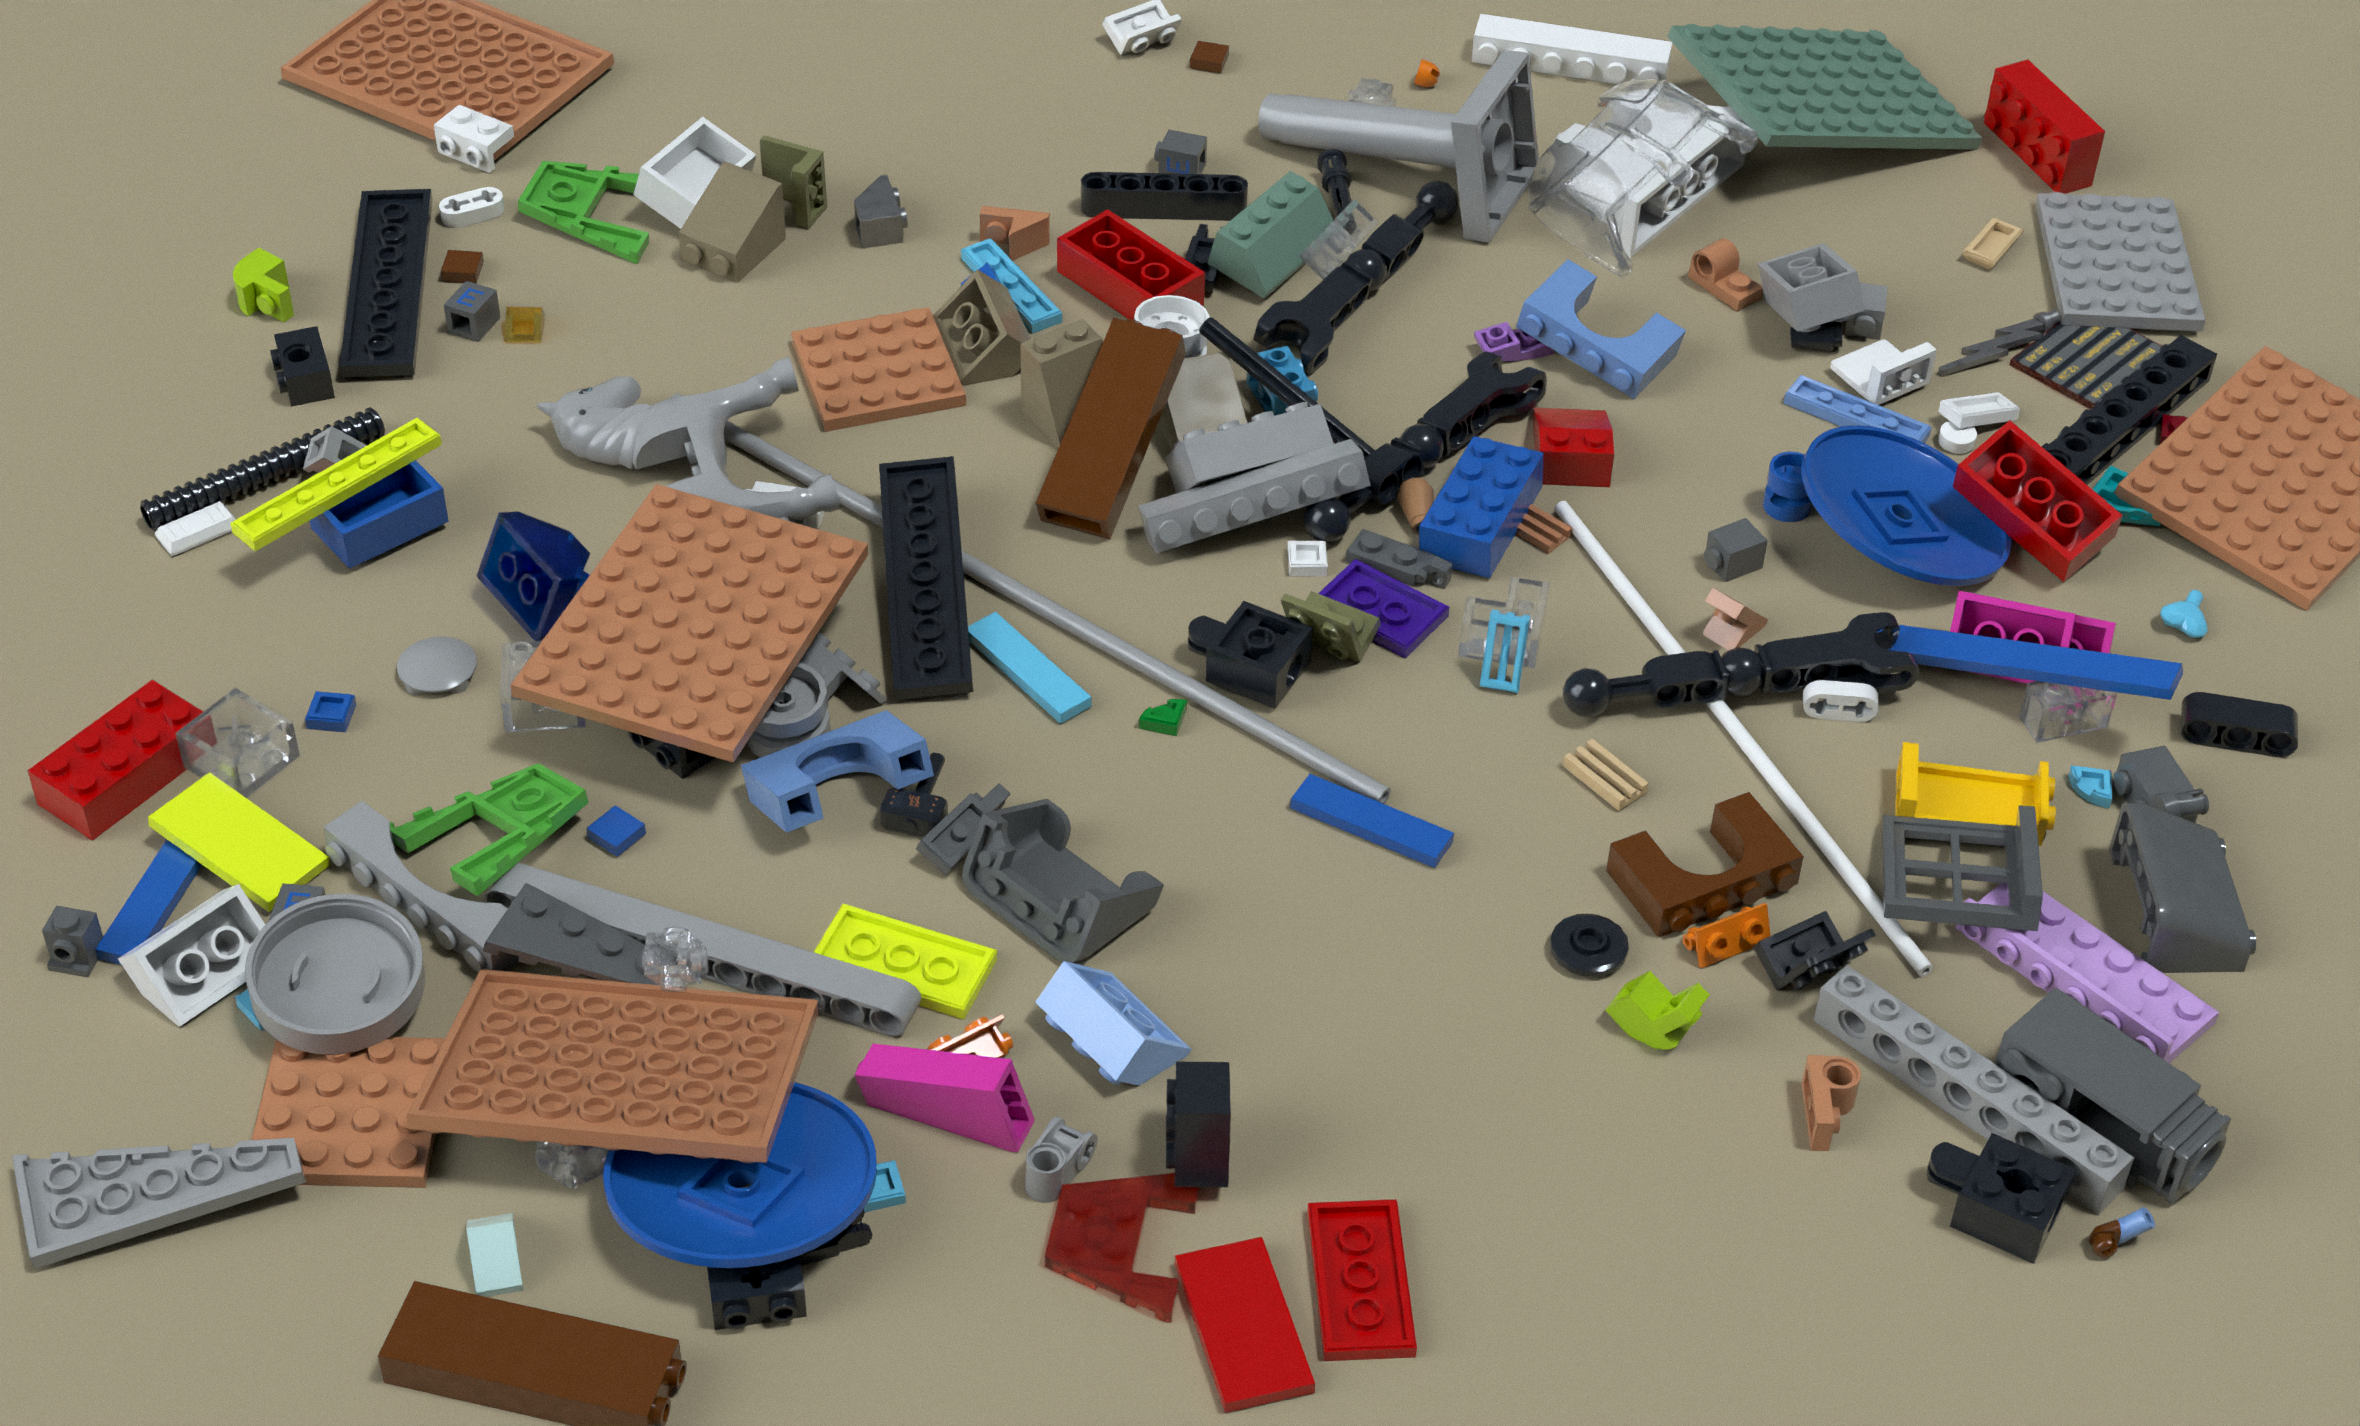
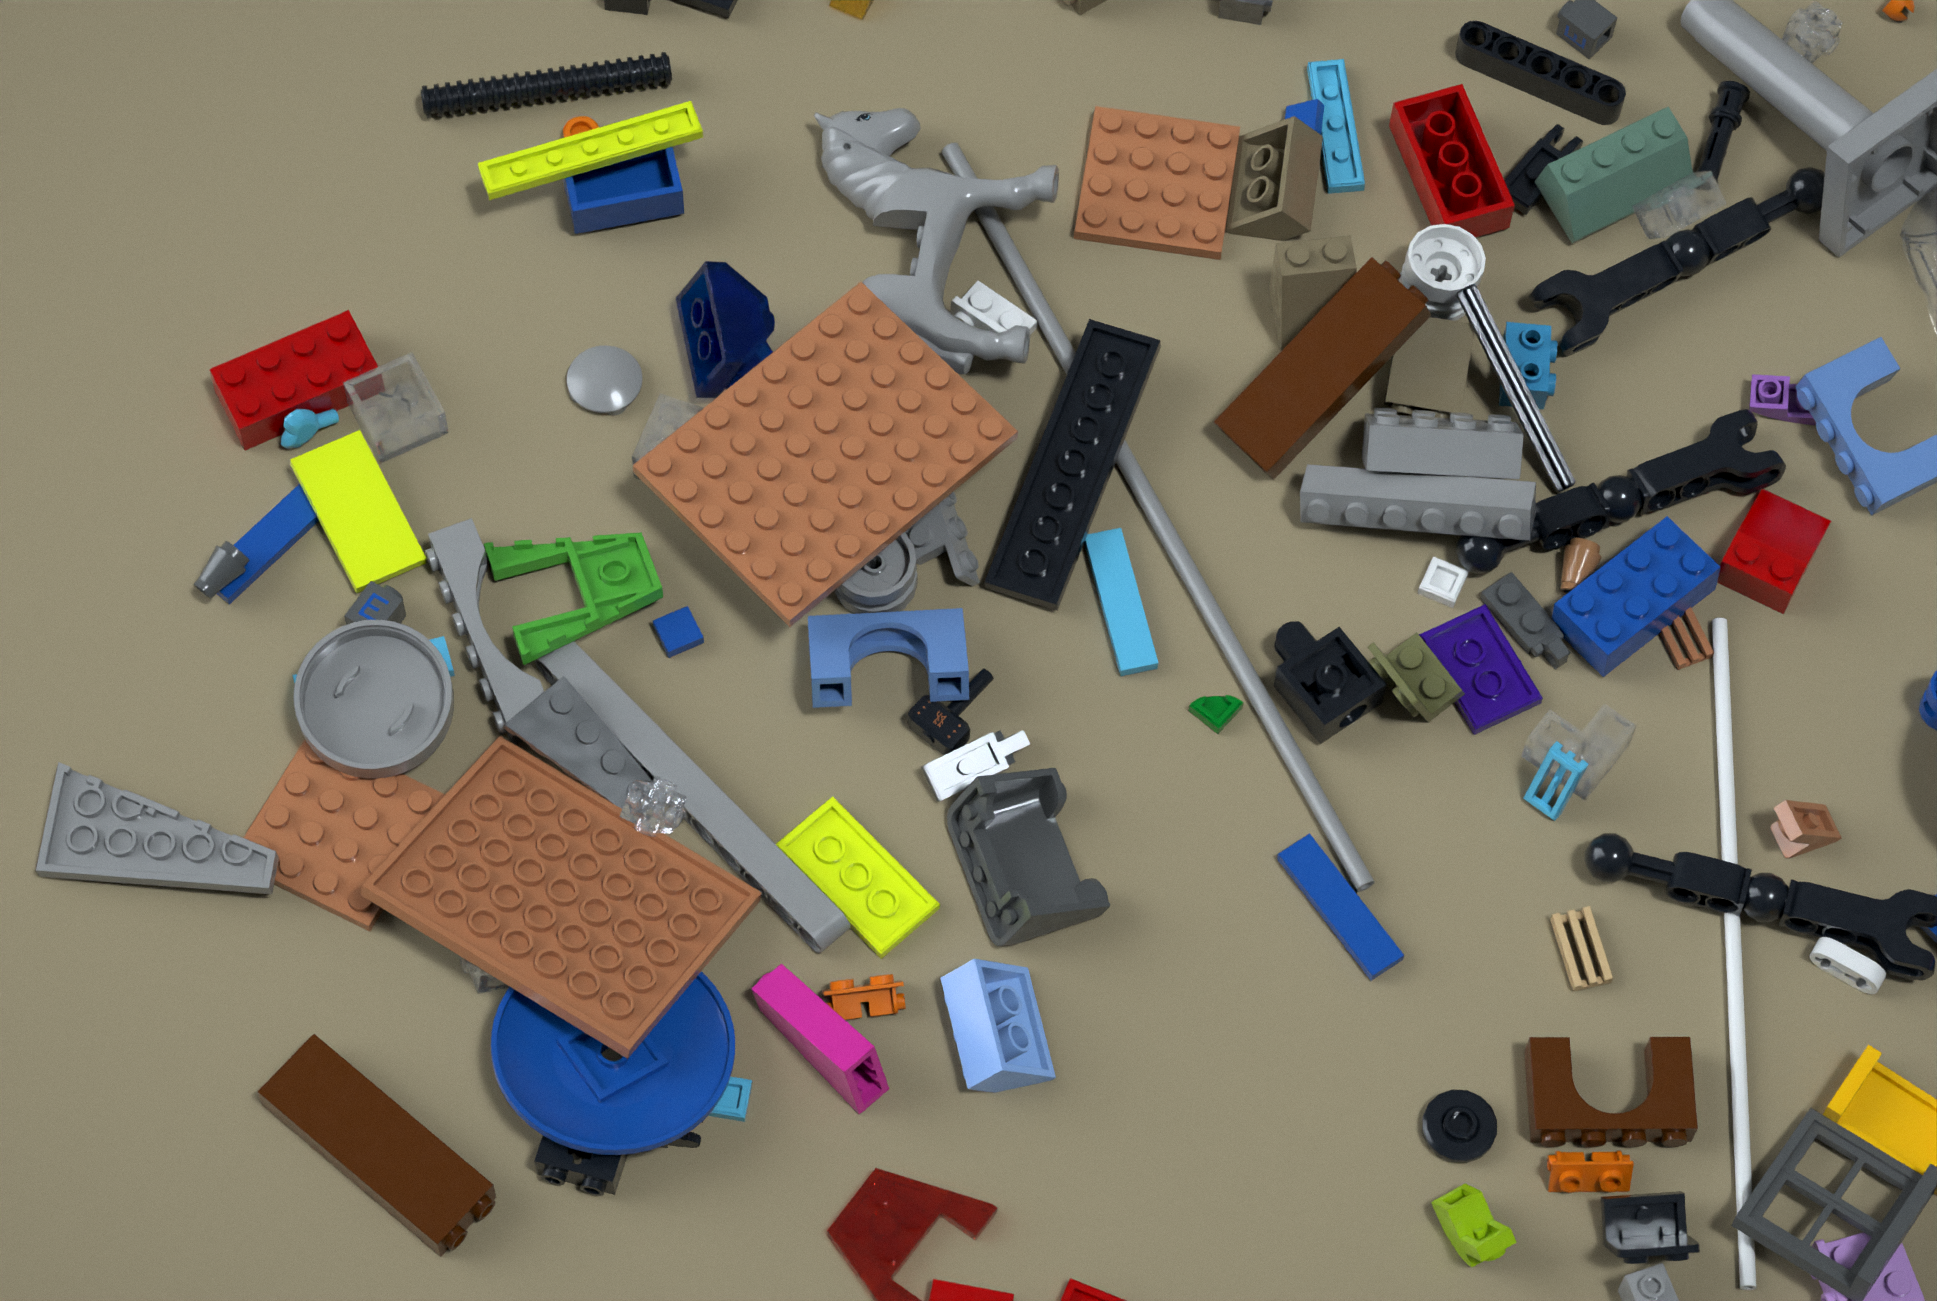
camera: 25 degrees right, 20 degrees up
(72, 940) = (183, 561): dark grey brick -> none
(117, 928) = (221, 569): none -> dark grey cone
(146, 793) = (303, 424): none -> medium azure rock
(195, 528) = (464, 130): white tile -> none
(196, 956) = (278, 619): white slope -> none
(329, 448) = (607, 93): light grey brick -> none
(330, 711) = (493, 393): blue tile -> none
(494, 1255) = (394, 1023): light aqua slope -> none
(1020, 229) = (1377, 63): nougat slope -> none
(1056, 1159) = (890, 1135): light grey piece -> none
(1199, 1124) = (1008, 1171): black brick -> none
(1735, 550) = (1852, 748): dark grey brick -> none

